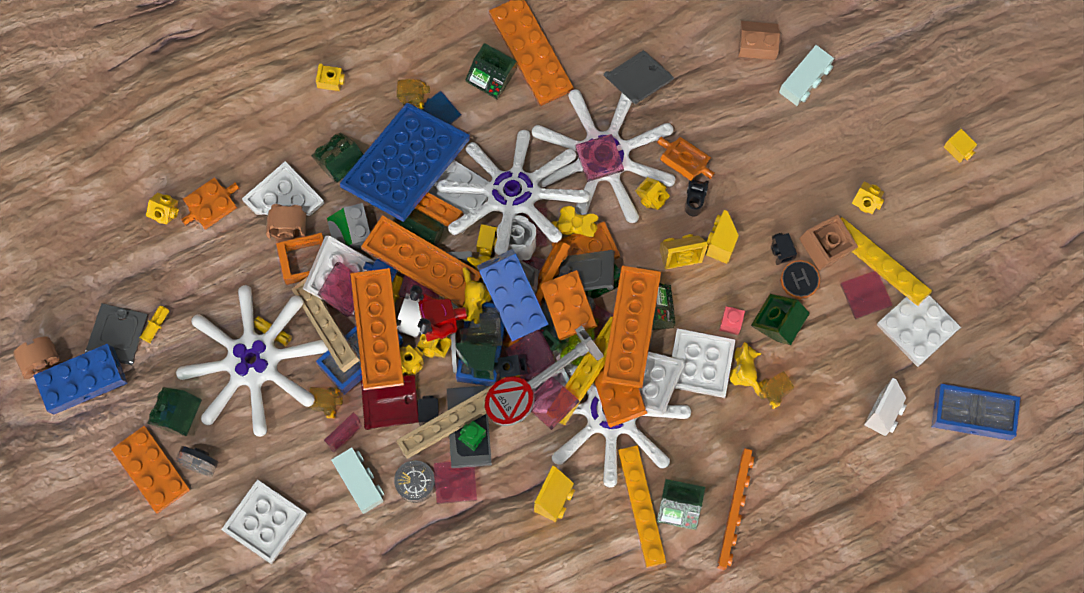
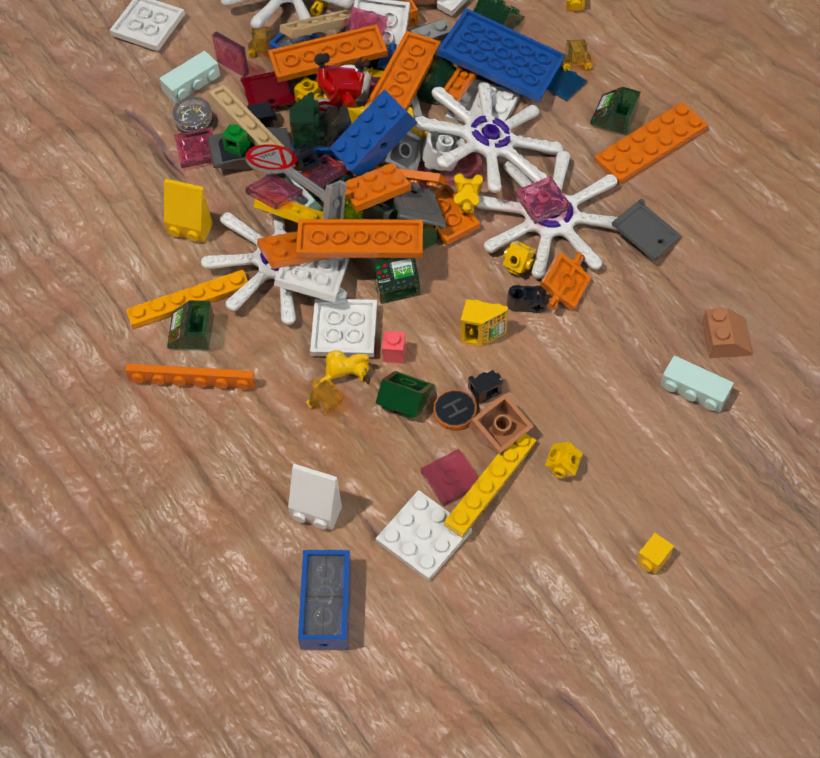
camera: 85 degrees right, 15 degrees down
(682, 251) = (457, 284): yellow slope -> none

